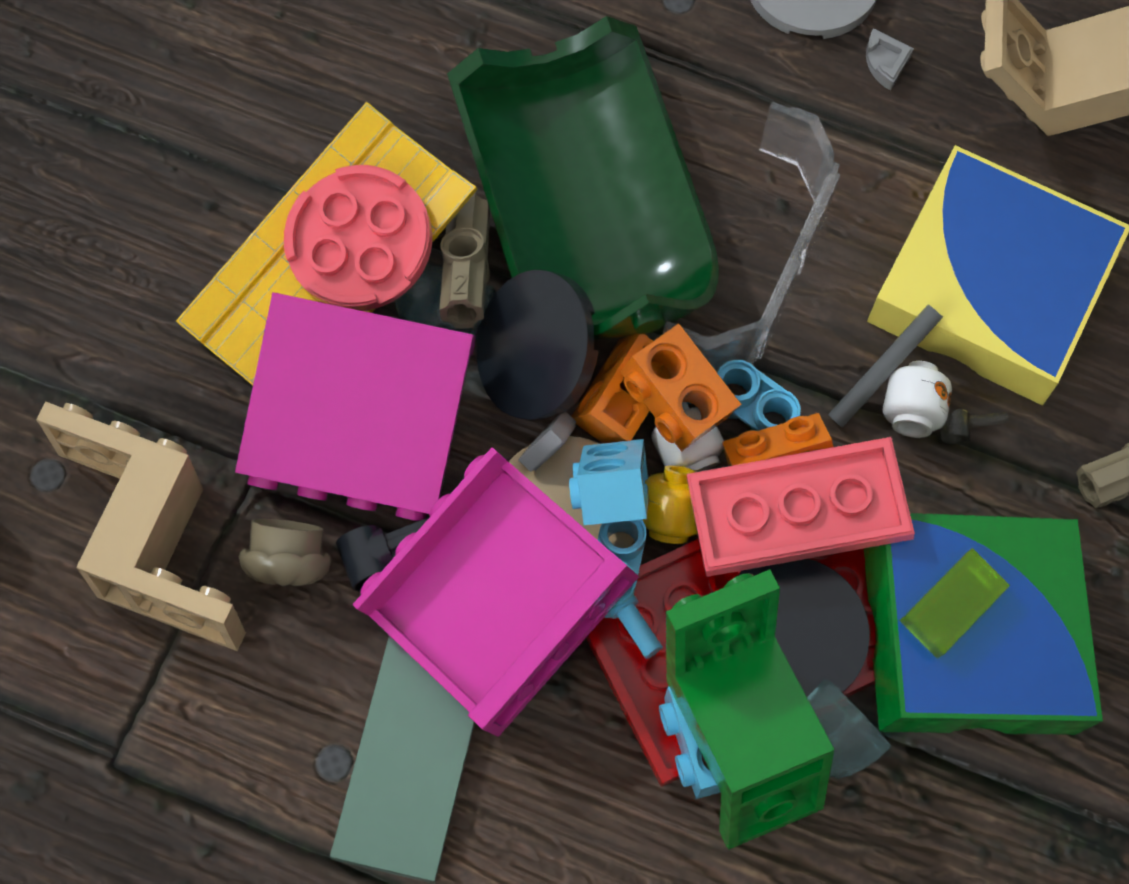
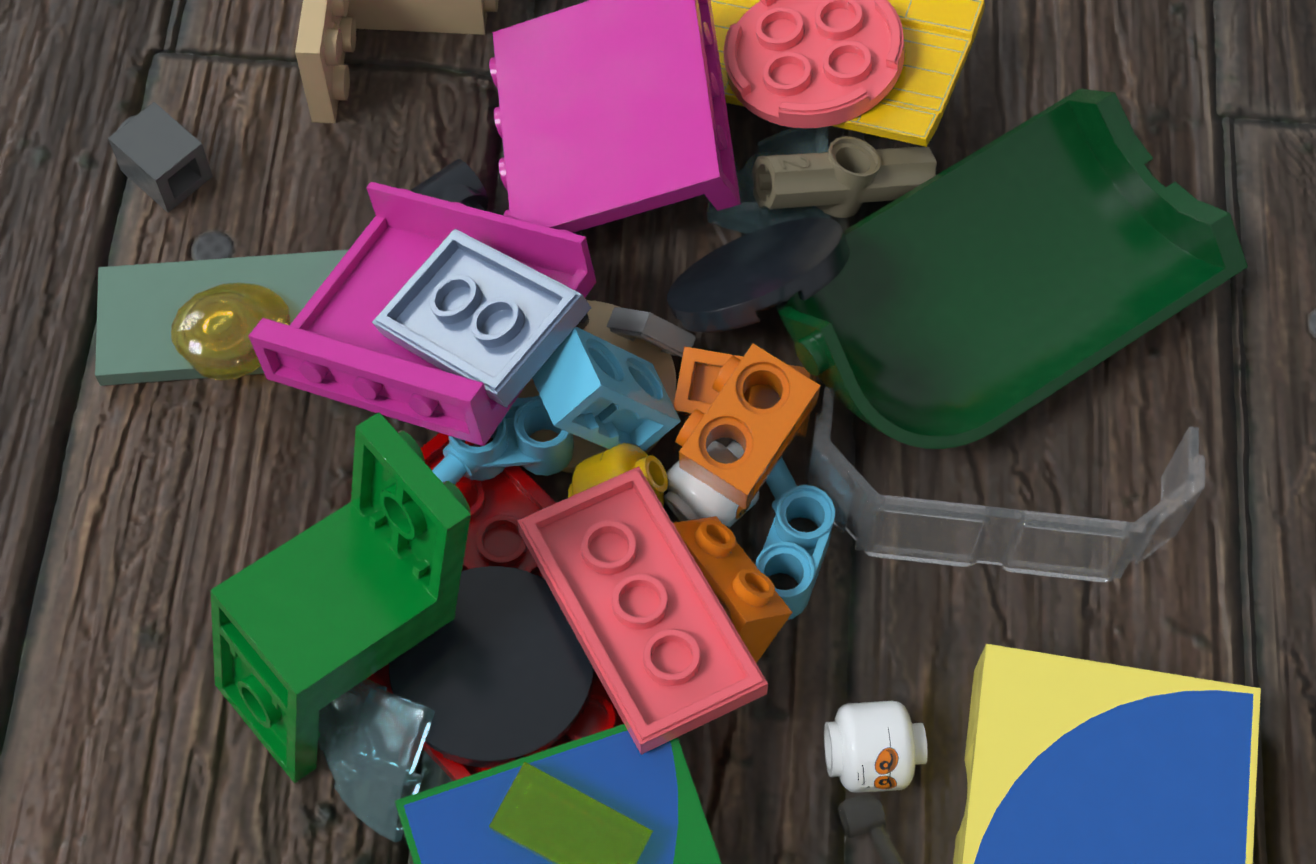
camera: 75 degrees right, 5 degrees down
(237, 780) = (160, 156): none -> dark grey brick
(285, 553) = (424, 114): dark tan piece -> none
(435, 755) = (216, 324): none -> clear yellow hat
(531, 545) = (482, 315): none -> tile
(885, 365) = (903, 689): dark grey bar -> none

